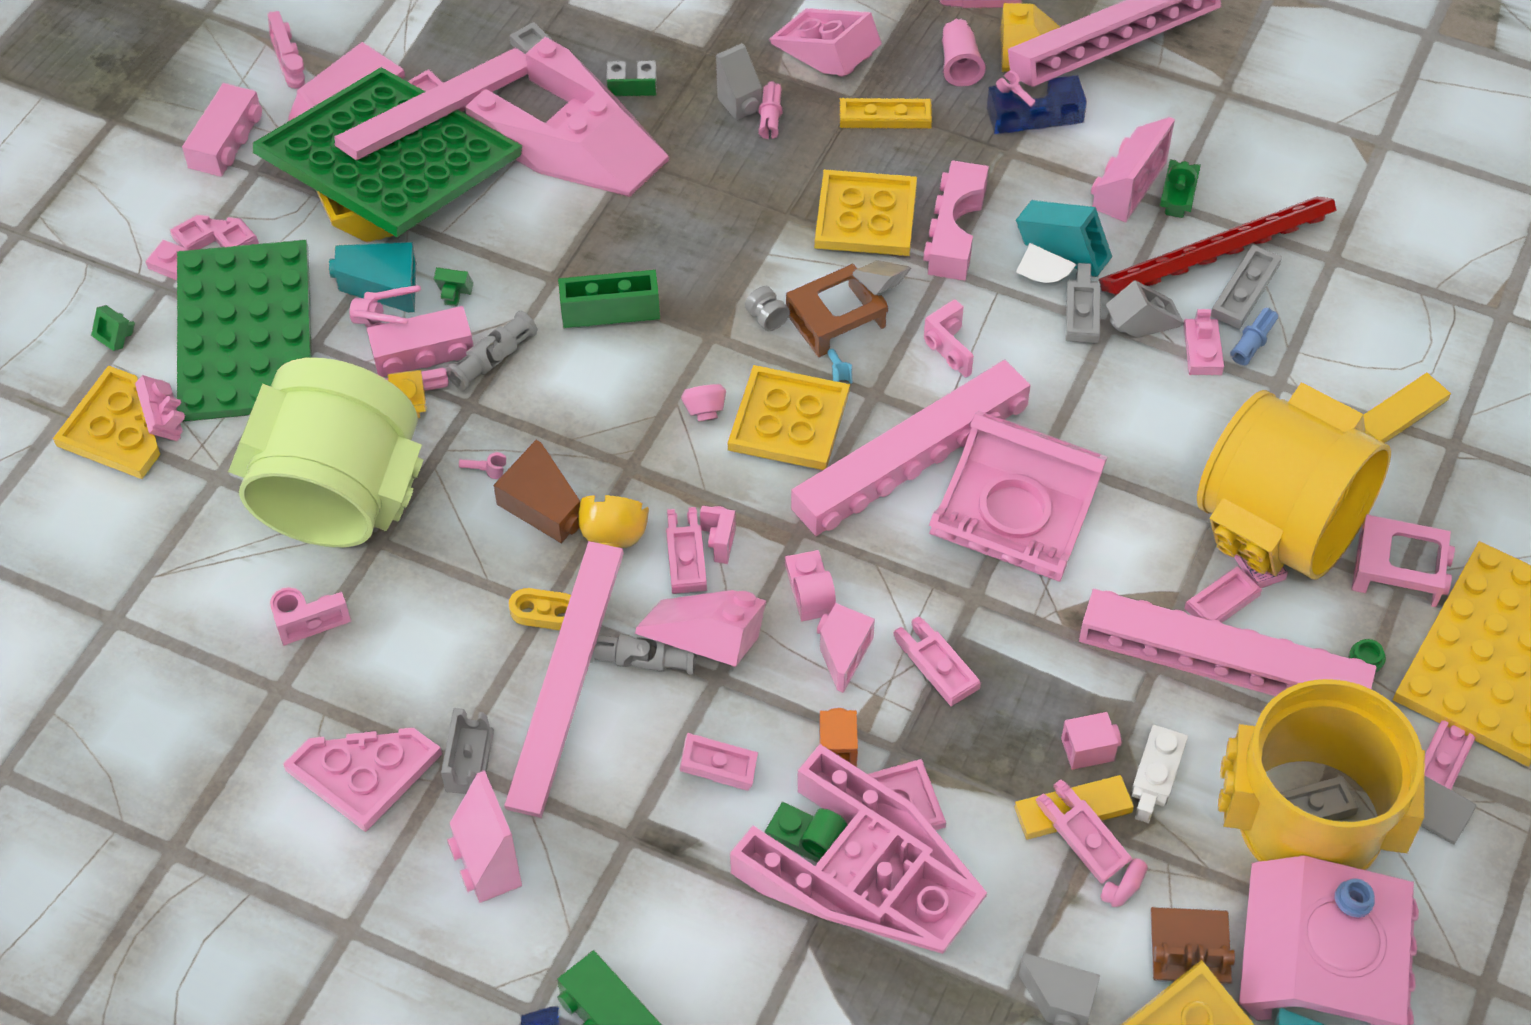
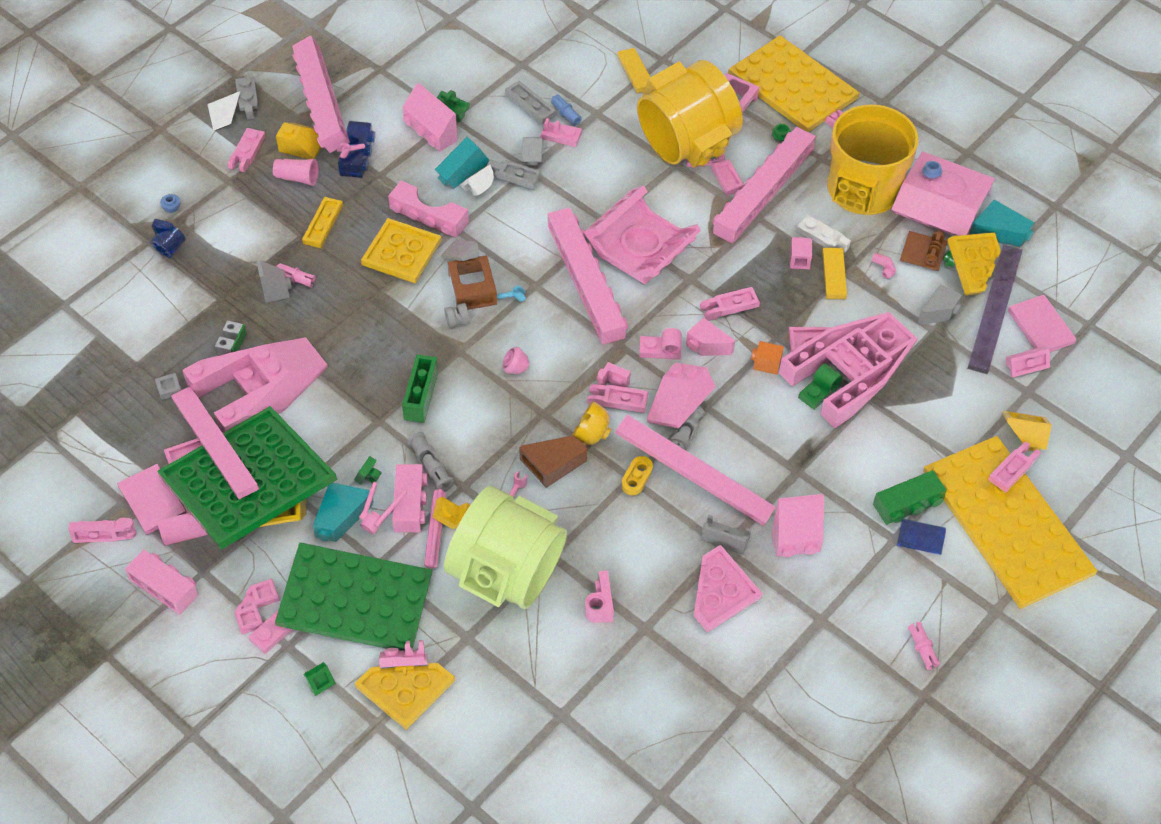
camera: 75 degrees left, 0 degrees up
(718, 761) = (768, 414): bright pink plate -> none
(789, 417) = (541, 326): yellow plate -> none
(829, 39) = (250, 231): bright pink slope -> none
(940, 333) = (511, 242): bright pink bracket -> none
(1085, 833) = (855, 269): bright pink hinge -> none
(1228, 242) = (497, 104): red plate -> none

